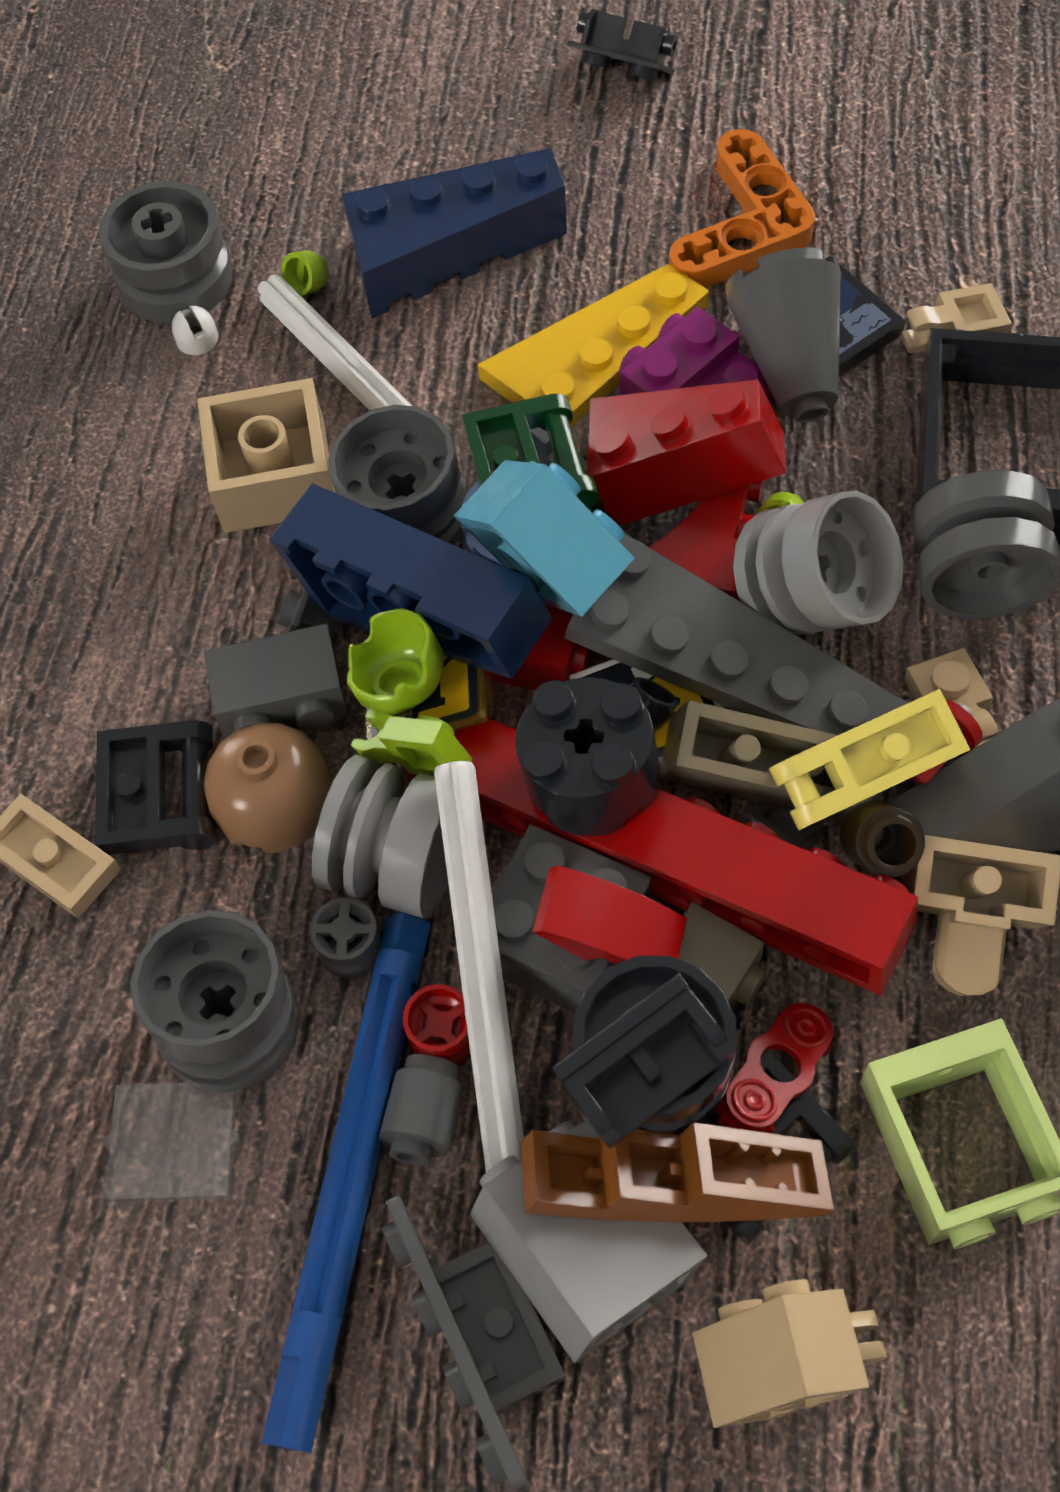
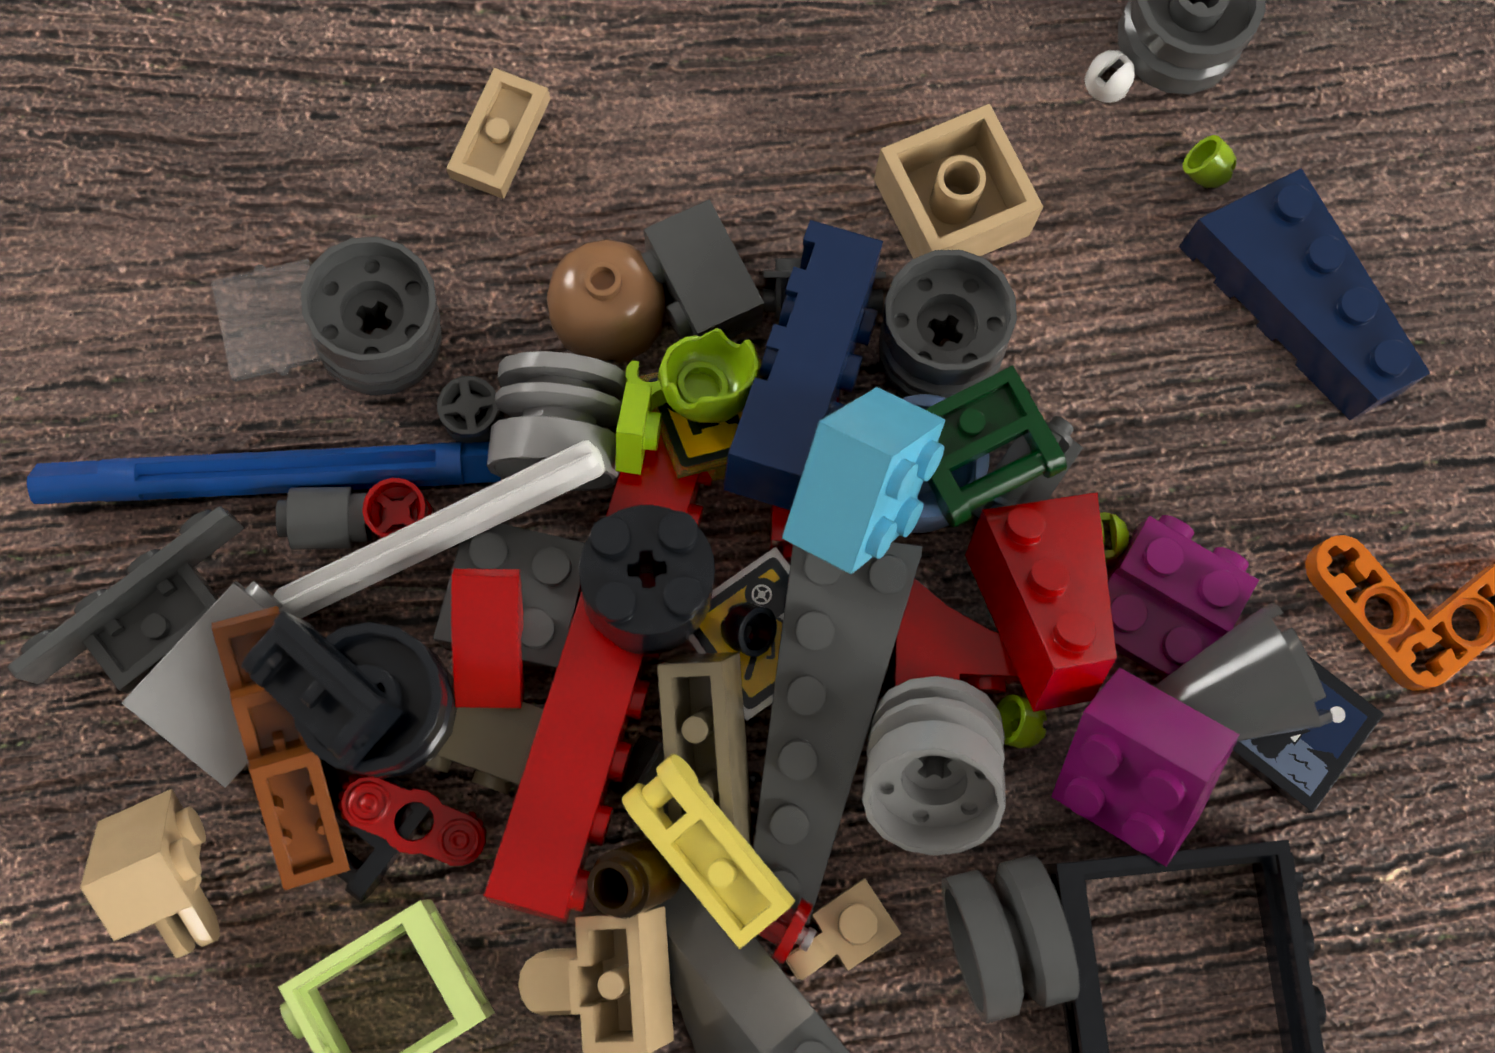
camera: 65 degrees right, 15 degrees up
(132, 788) = (577, 184): black plate -> none
(328, 345) = (1104, 238): white axle -> none
(586, 349) = (1170, 466): yellow wing -> none
(852, 405) = (1143, 765): none -> magenta brick
(964, 309) = (1335, 878): tan plate -> none

